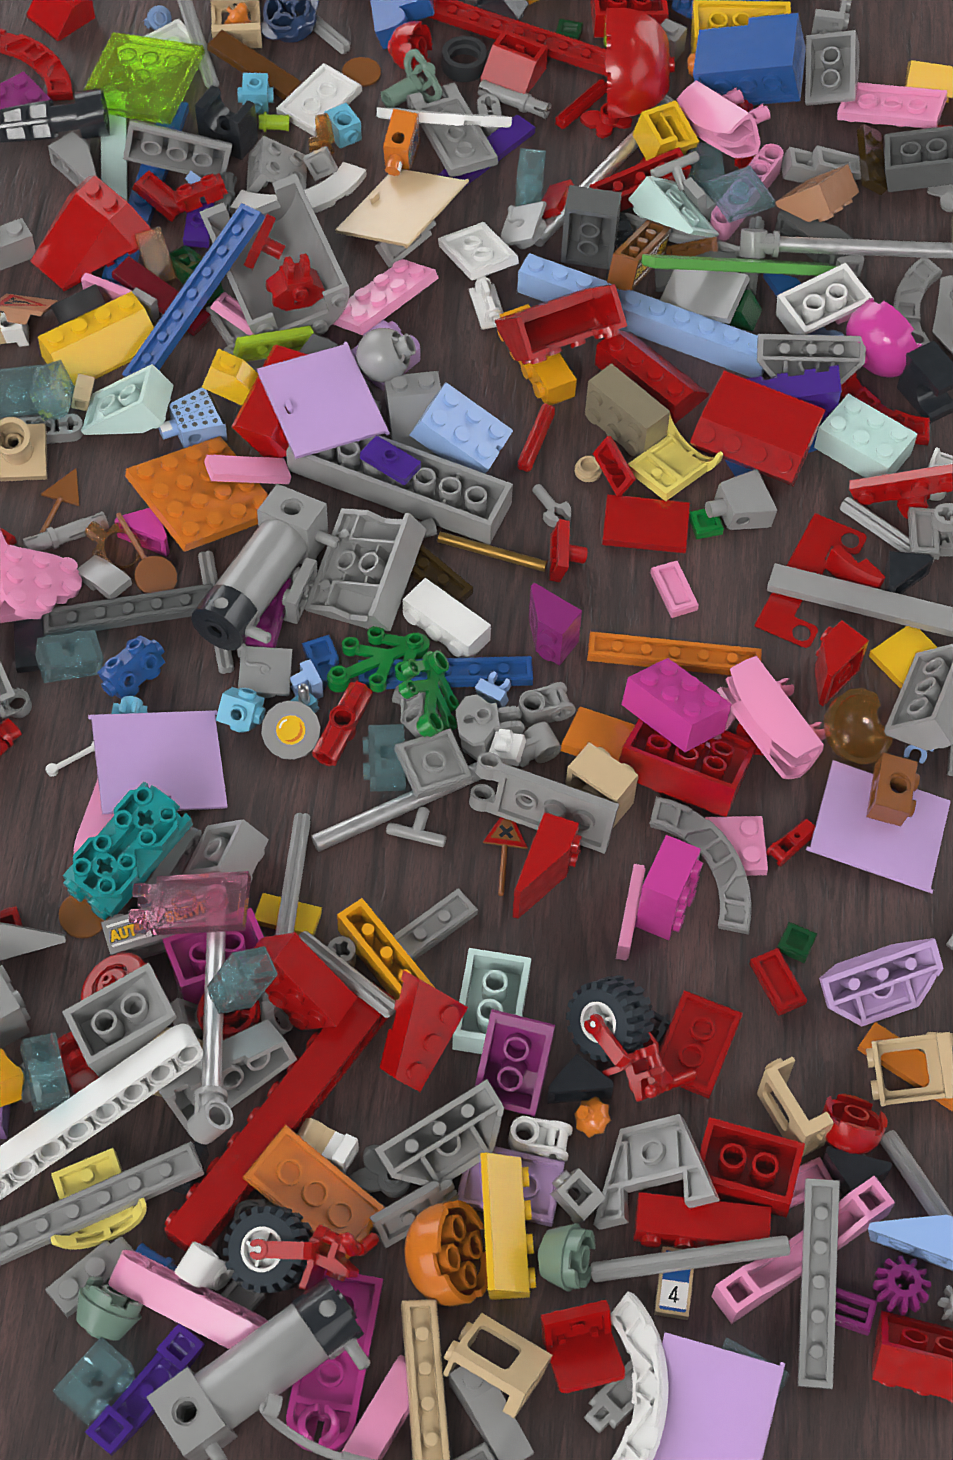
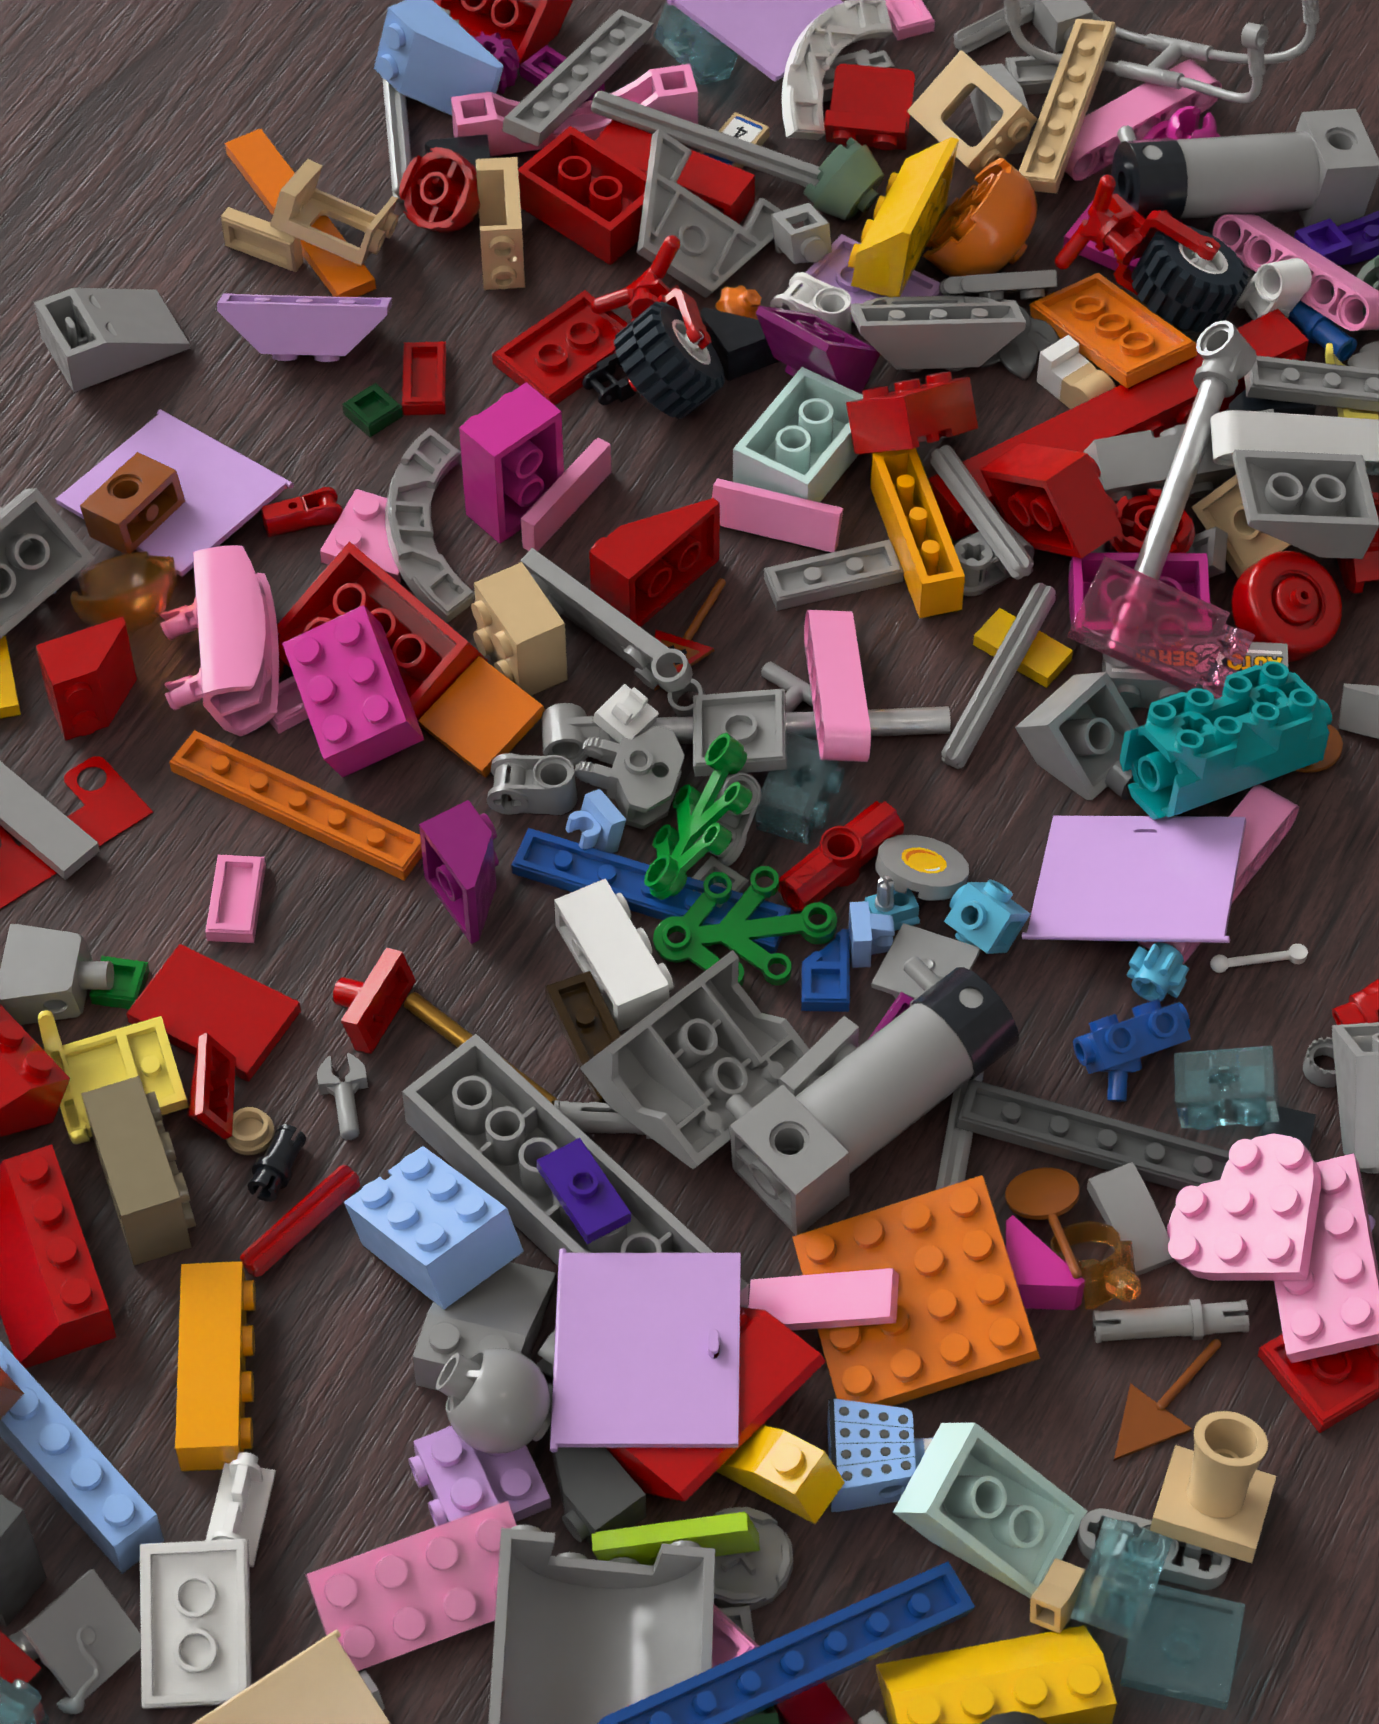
camera: 155 degrees left, 5 degrees down
(241, 980) = (1134, 471): clear light blue brick -> none
(295, 283) = (587, 1625): red hinge -> none
(389, 819) = (837, 686): none -> bright pink beam
(499, 945) = (778, 515): none -> bright pink tile
(561, 322) = (158, 1353): red windscreen -> none
(564, 453) = (273, 1168): none -> black pin

